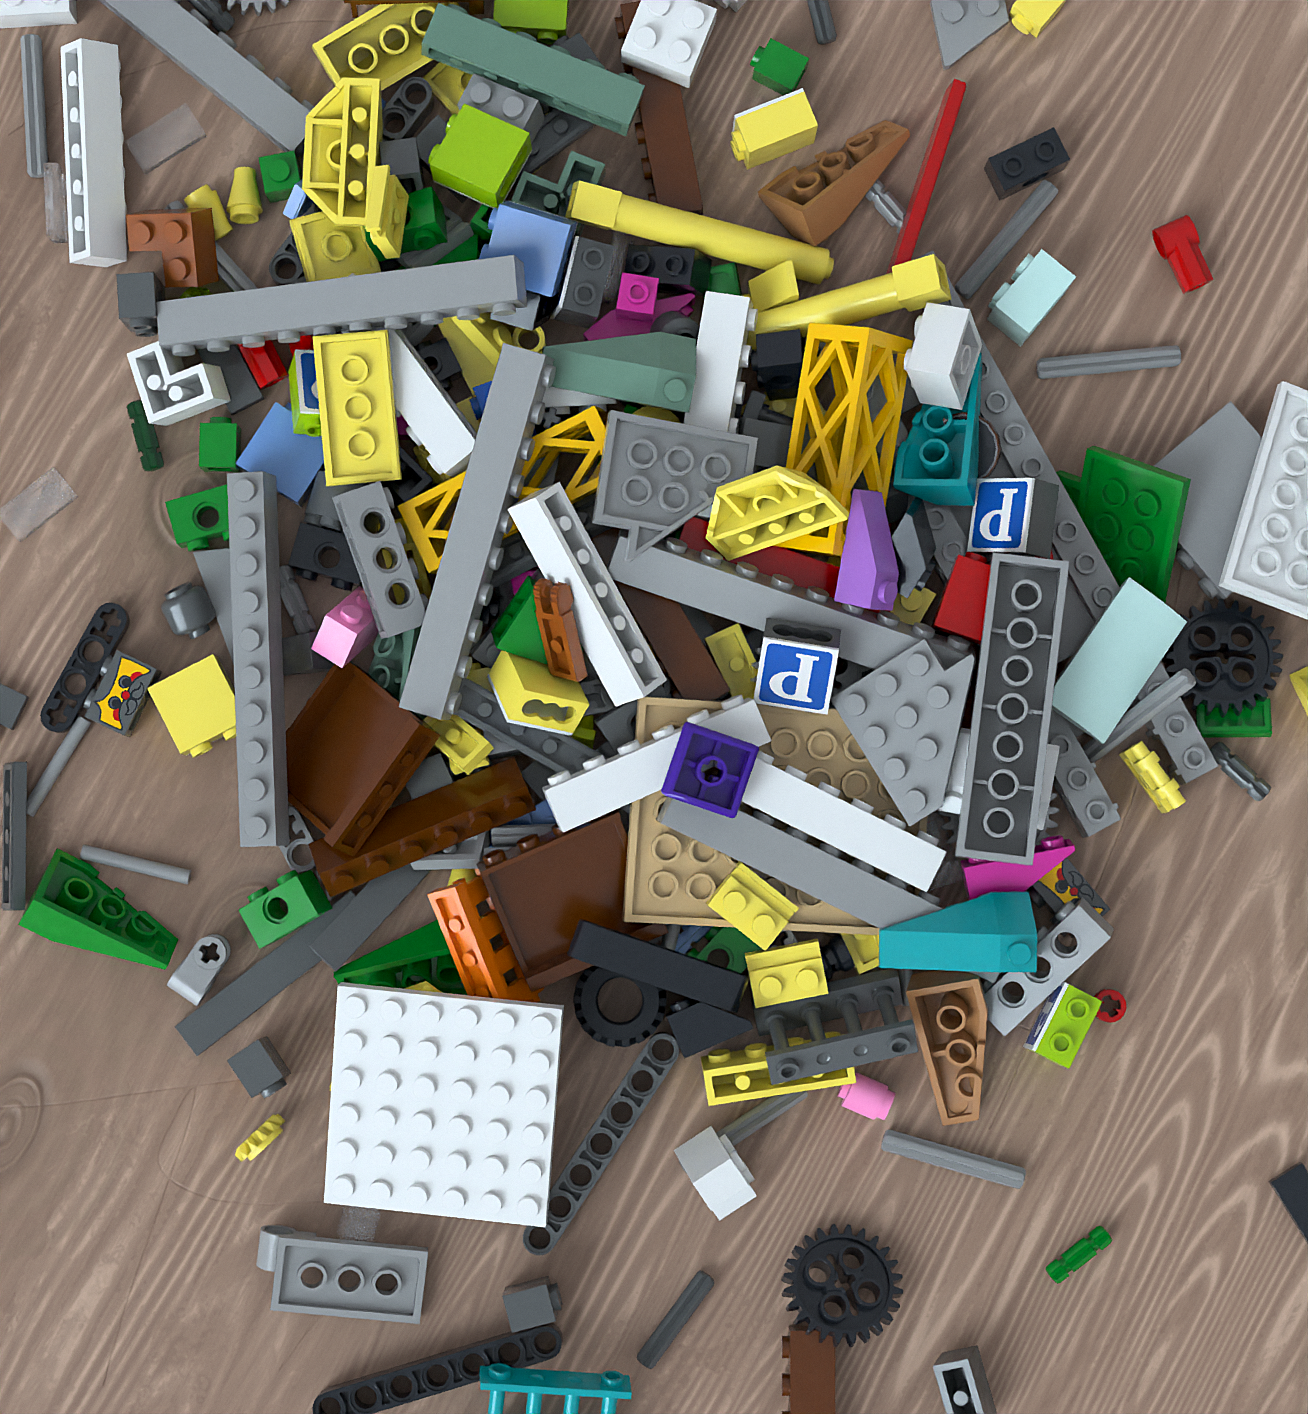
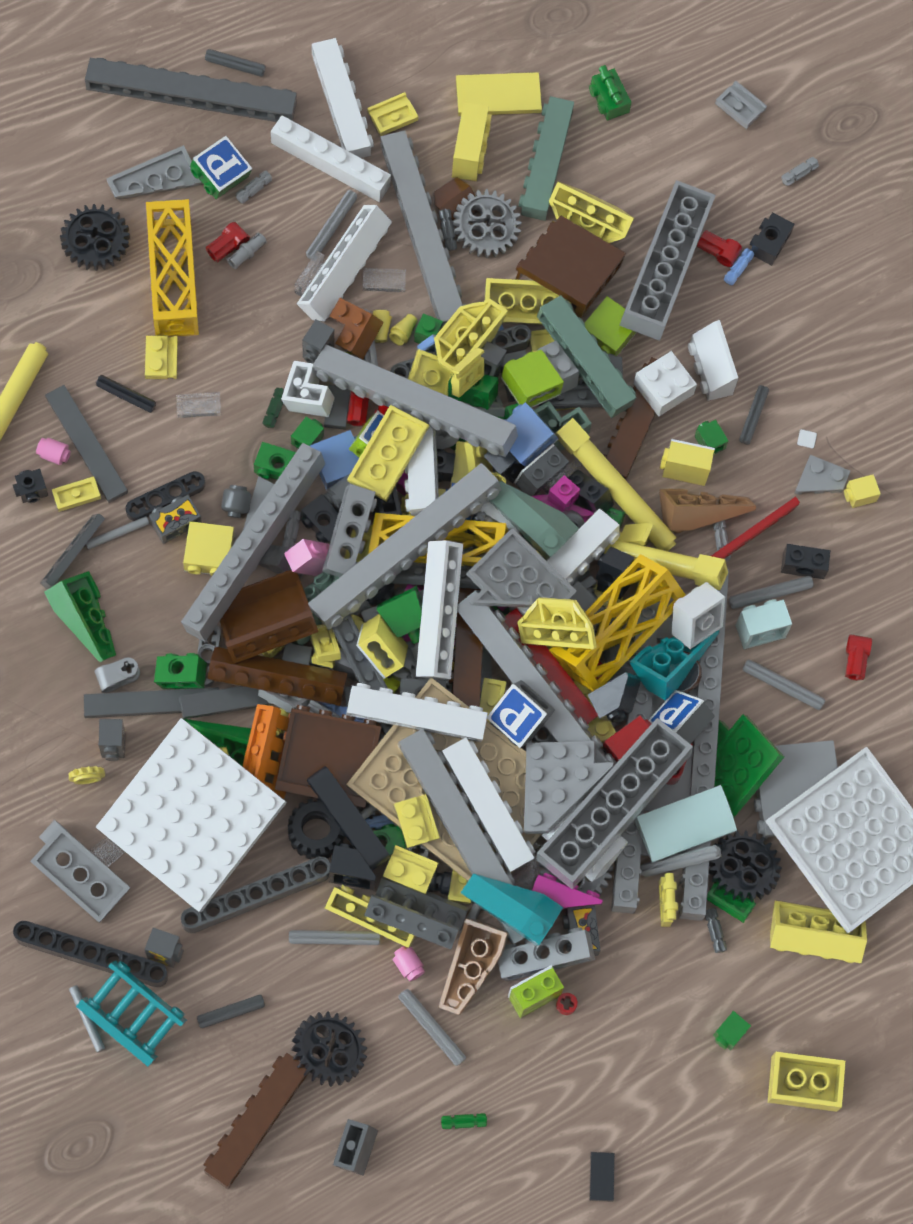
camera: 30 degrees right, 15 degrees down
(135, 864) = (119, 602): light grey bar -> none
(559, 630) = (413, 617): dark orange hinge -> none
(716, 1172) = (304, 946): white brick -> none
(721, 792) = (456, 731): dark purple brick -> none
(868, 558) = (592, 682): medium lavender slope -> none

